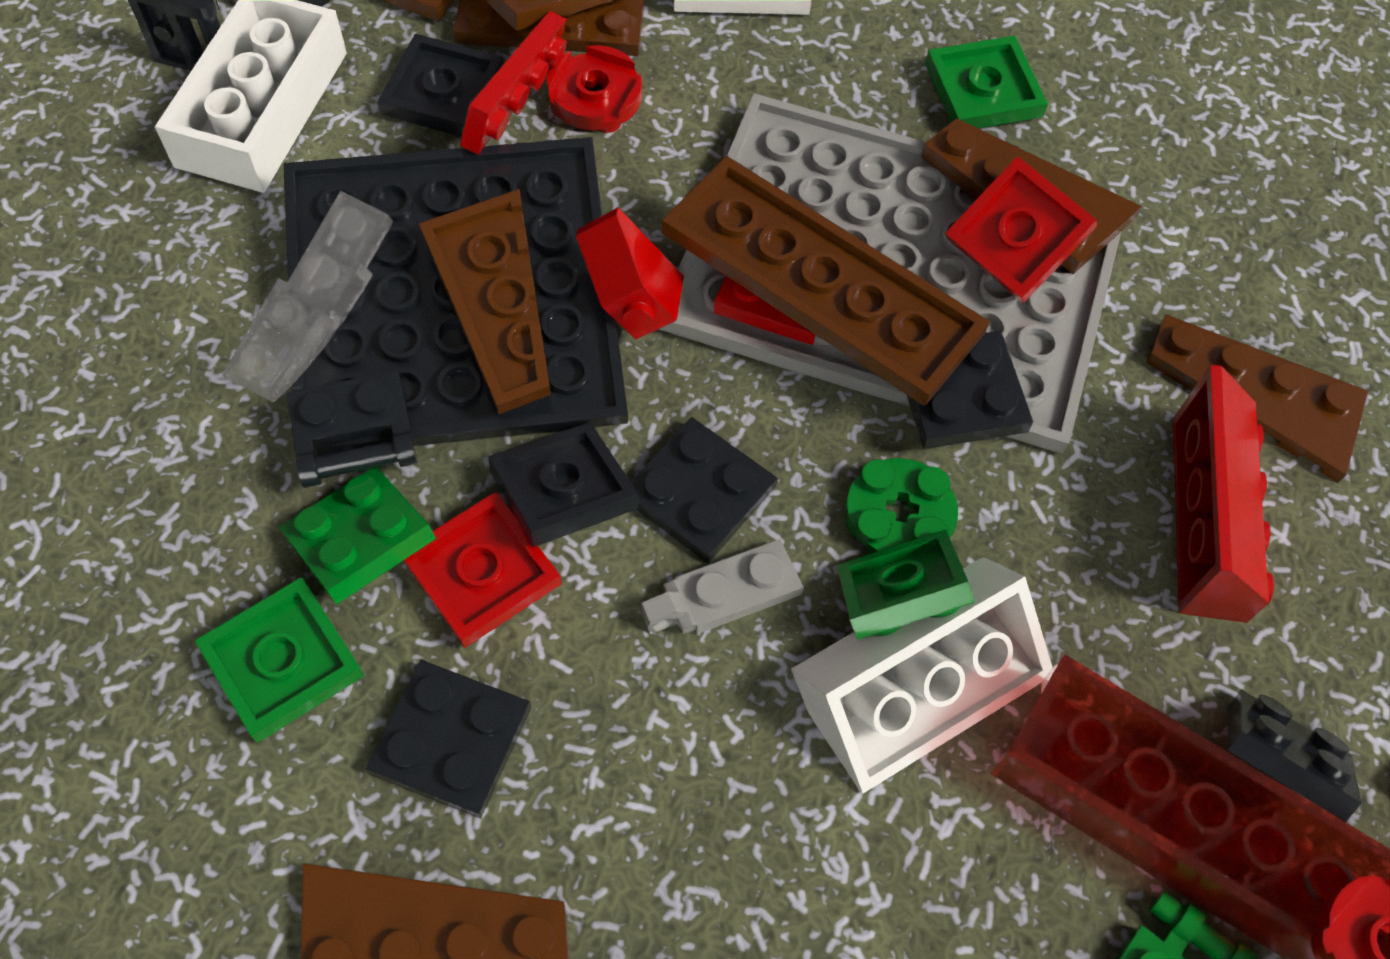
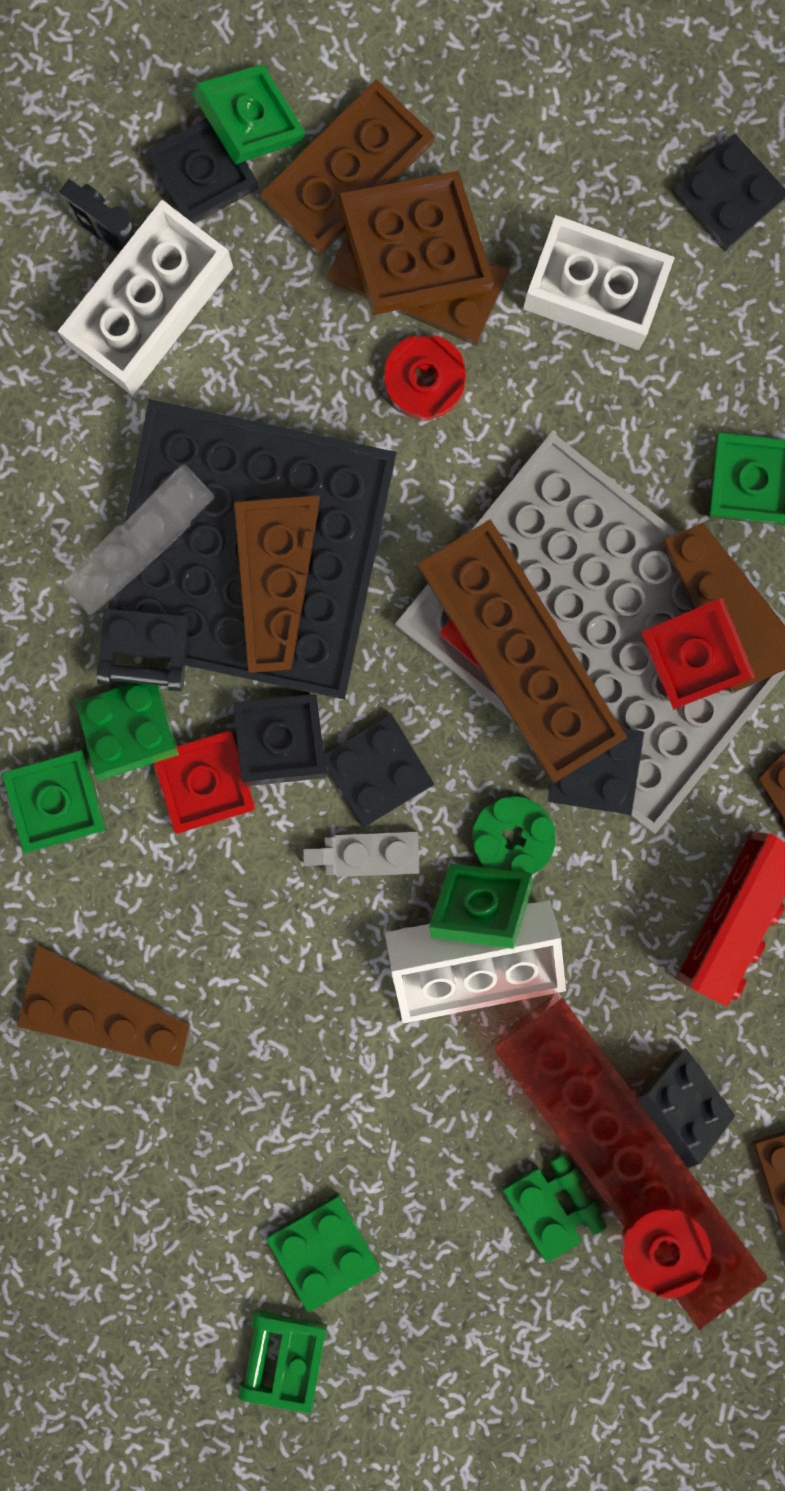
camera: 25 degrees right, 25 degrees up
(437, 83) = (300, 334): black plate -> none
(449, 738) = (150, 893): black plate -> none
(512, 83) = (366, 364): red plate -> none
(630, 274) = (382, 595): red slope -> none

